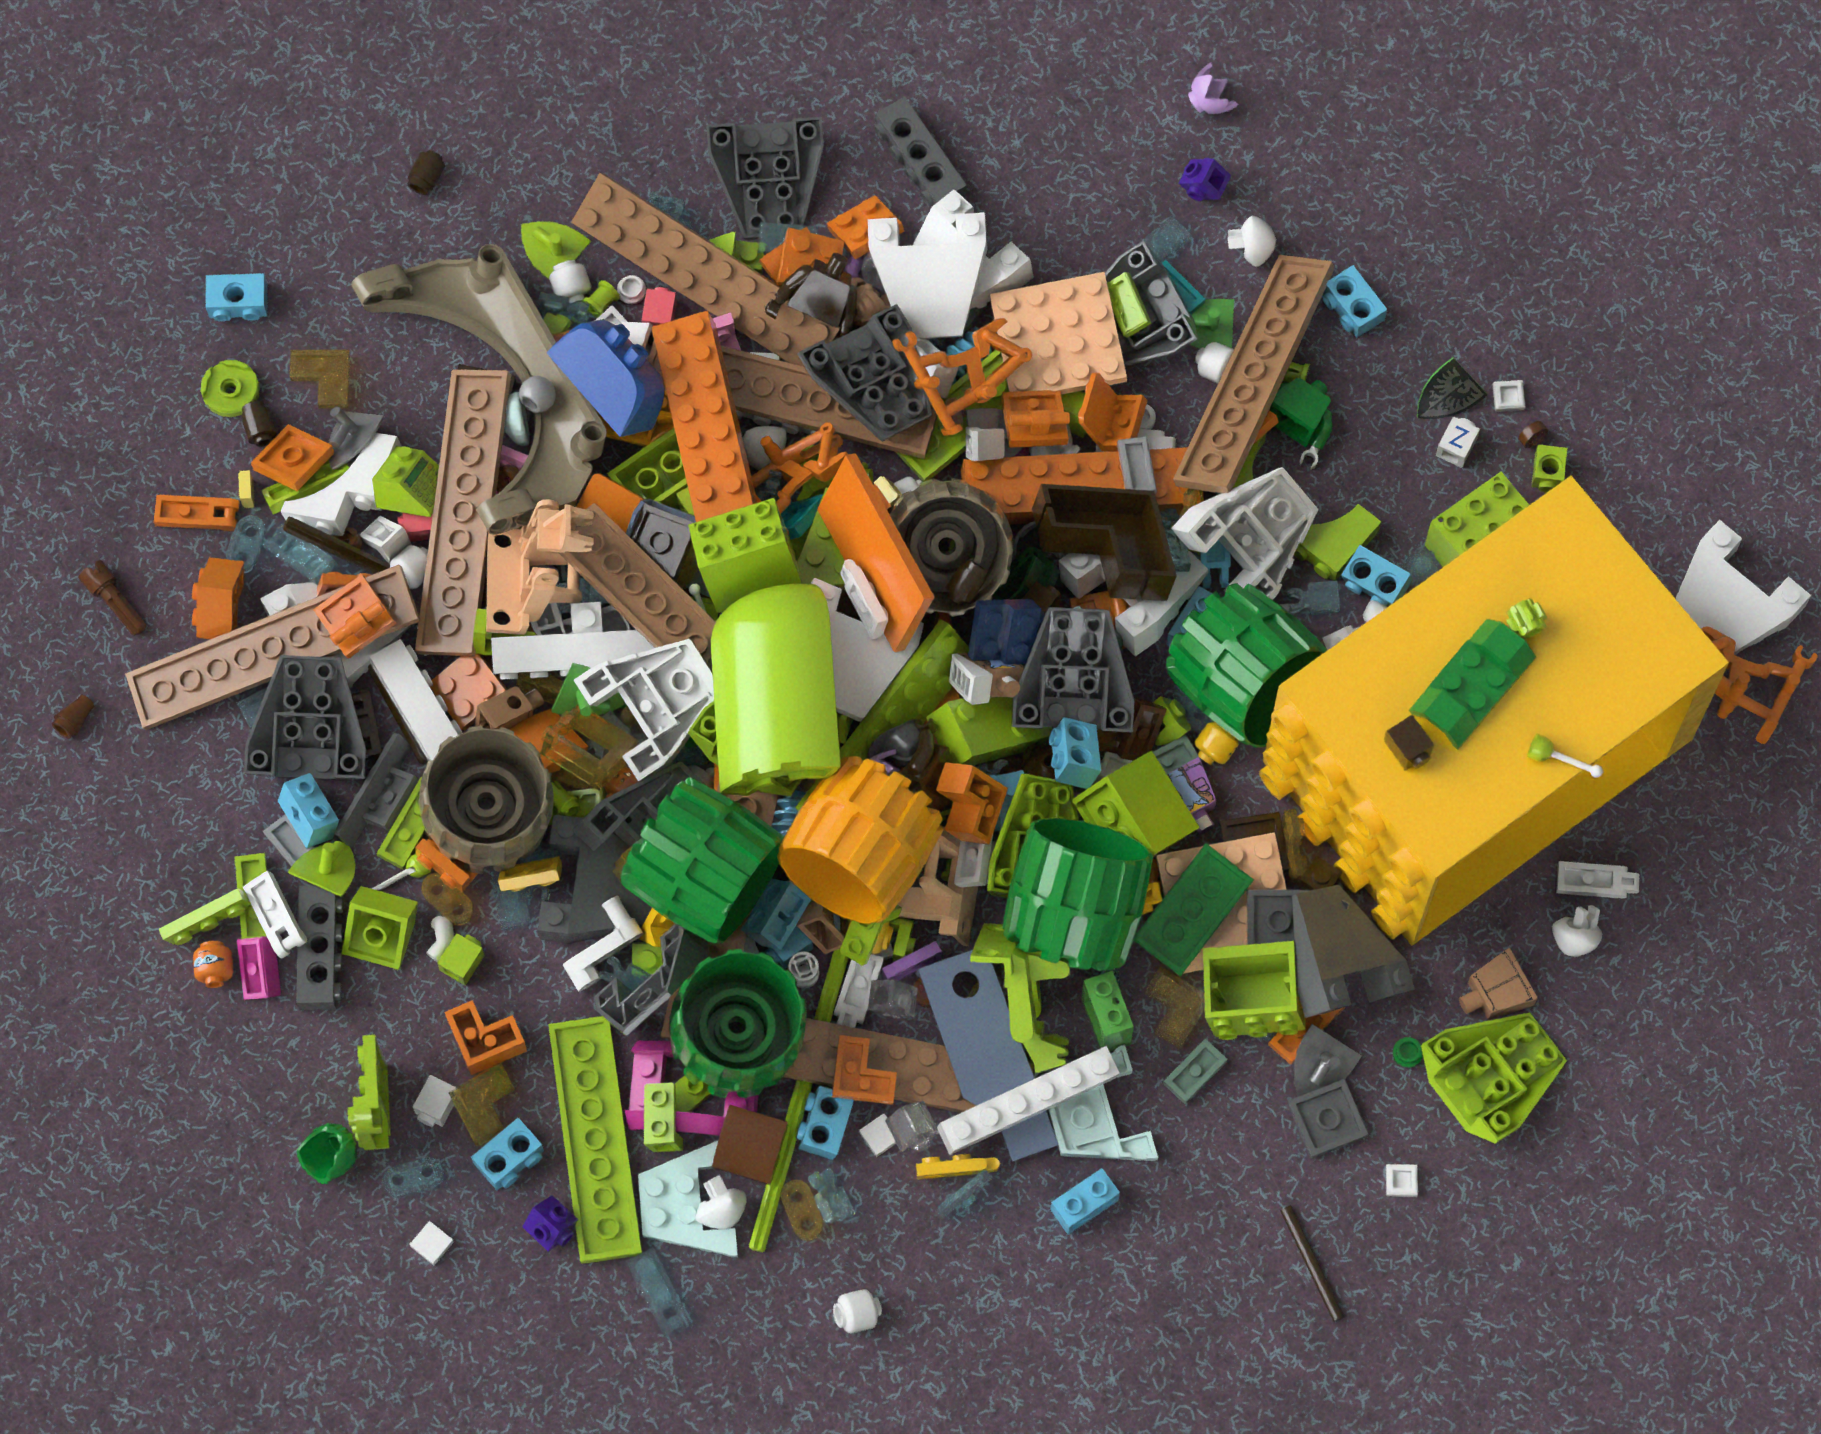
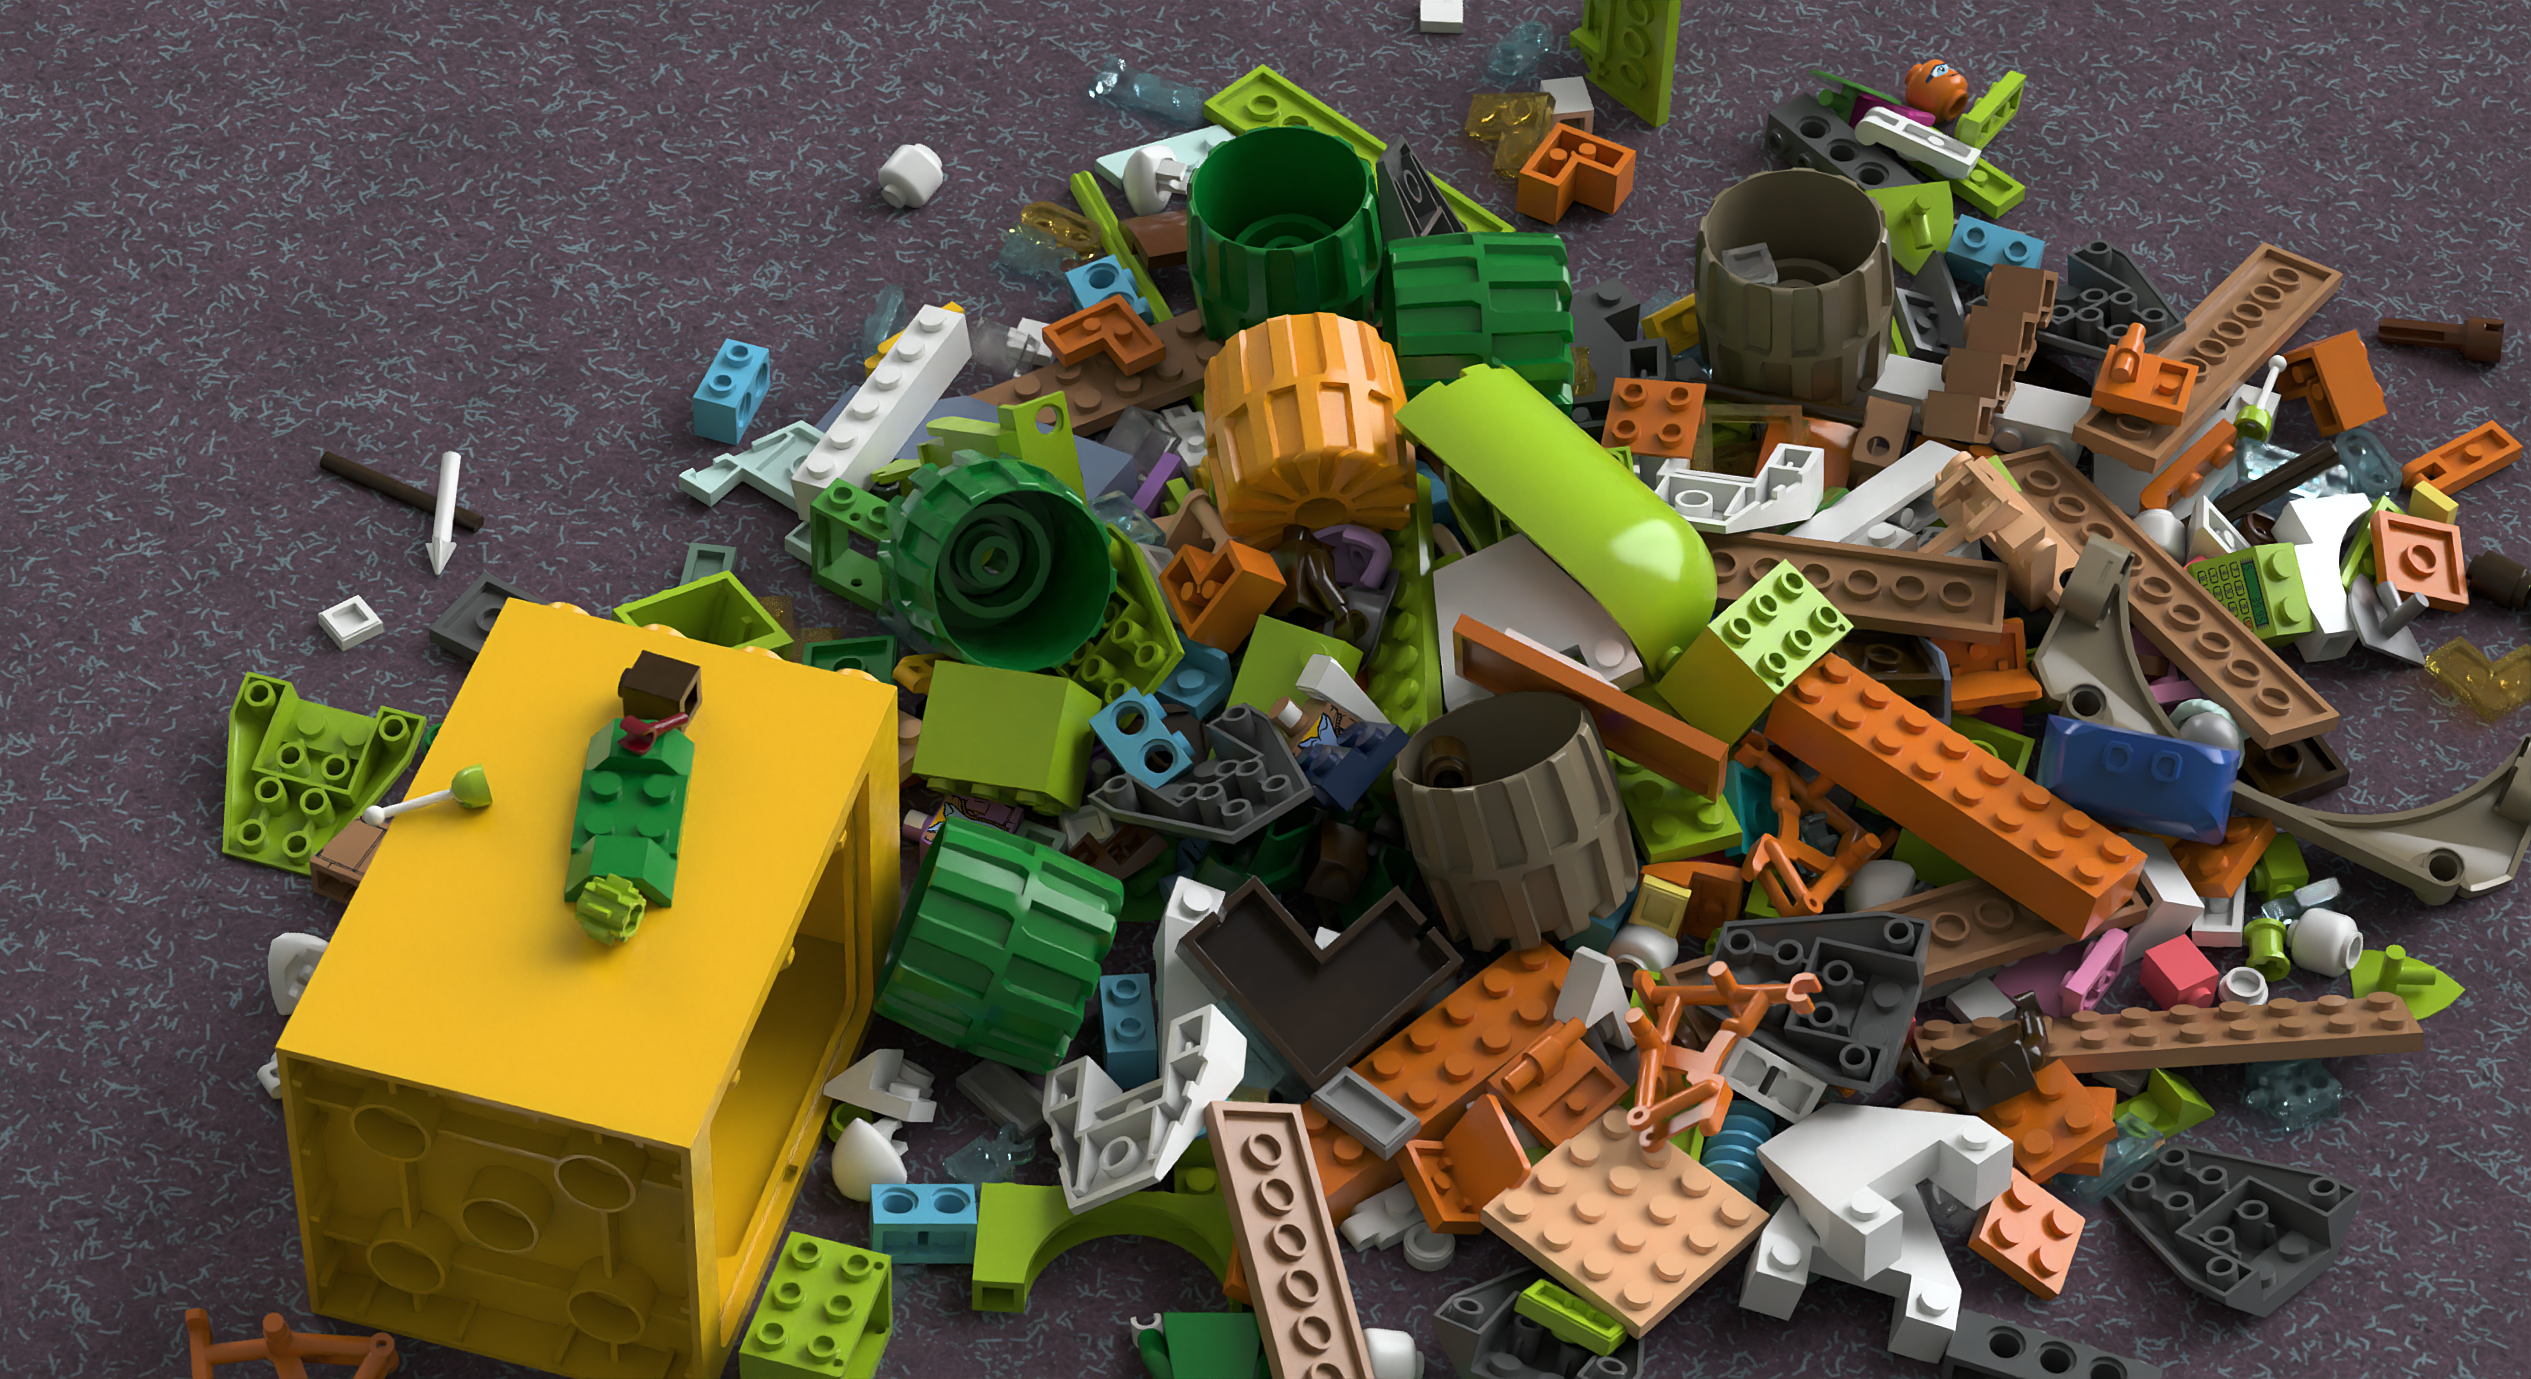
camera: 140 degrees right, 25 degrees down
(71, 718) = (2349, 211): reddish brown cone -> none
(271, 988) = (1845, 101): none -> bright green shield
(298, 583) = (2255, 413): none -> lime hinge
(401, 708) = (1997, 345): none -> medium nougat brick
(461, 958) = (1674, 233): lime brick -> none
(502, 1149) = (1437, 108): medium azure brick -> none
(513, 806) = (1752, 264): none -> clear tile
(550, 1223) = (1330, 56): dark purple brick -> none
(557, 783) = (1810, 408): none -> dark brown bar
(643, 764) = (1655, 417): none -> orange hinge
(966, 914) = (1128, 517): none -> clear light blue plate
(1319, 1202) = (441, 545): none -> white piece
(1447, 702) = (642, 736): none -> dark red hand

